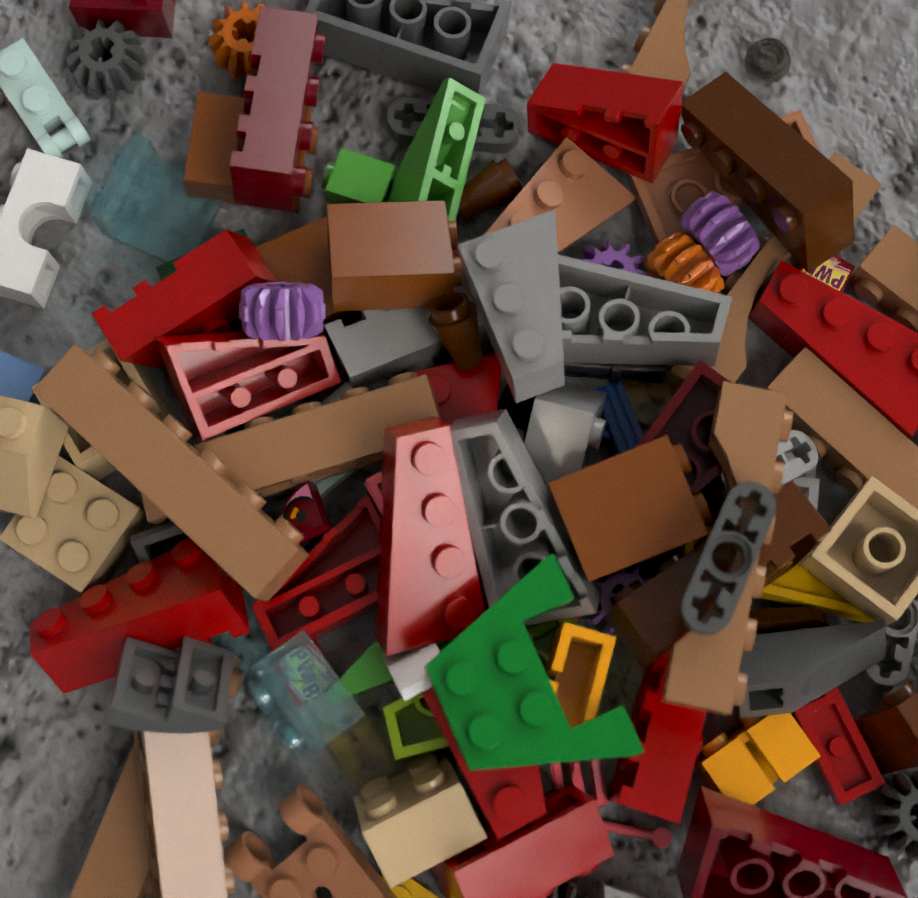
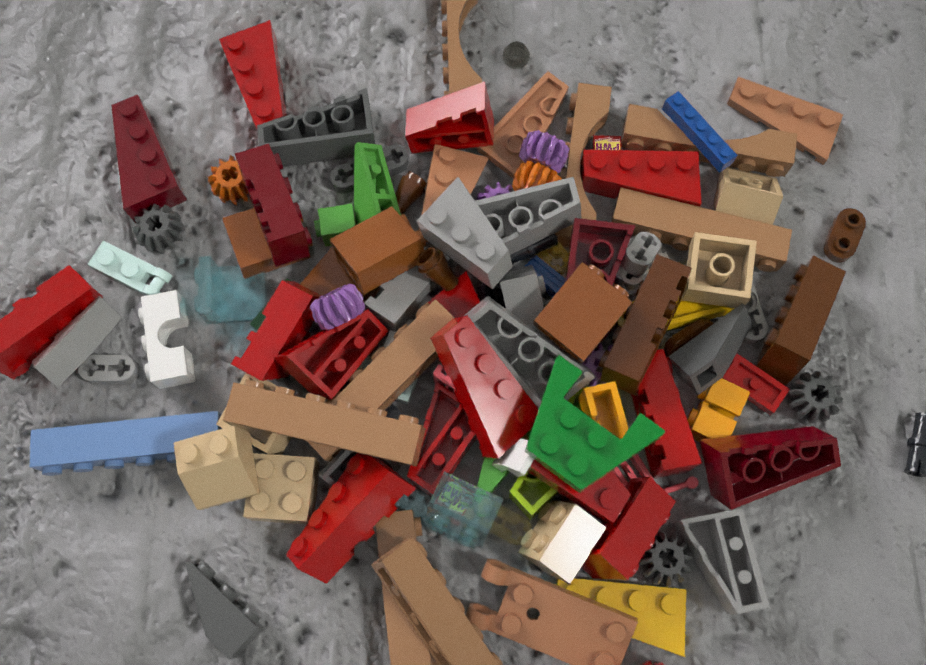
camera: 25 degrees left, 5 degrees down
(171, 688) = (392, 541): dark grey slope -> none
(306, 511) = (407, 406): dark red tile -> none
(730, 515) = (657, 282): dark grey beam -> none
(745, 441) = (623, 245): medium nougat arch -> none
(772, 169) = (553, 105): reddish brown wedge -> none

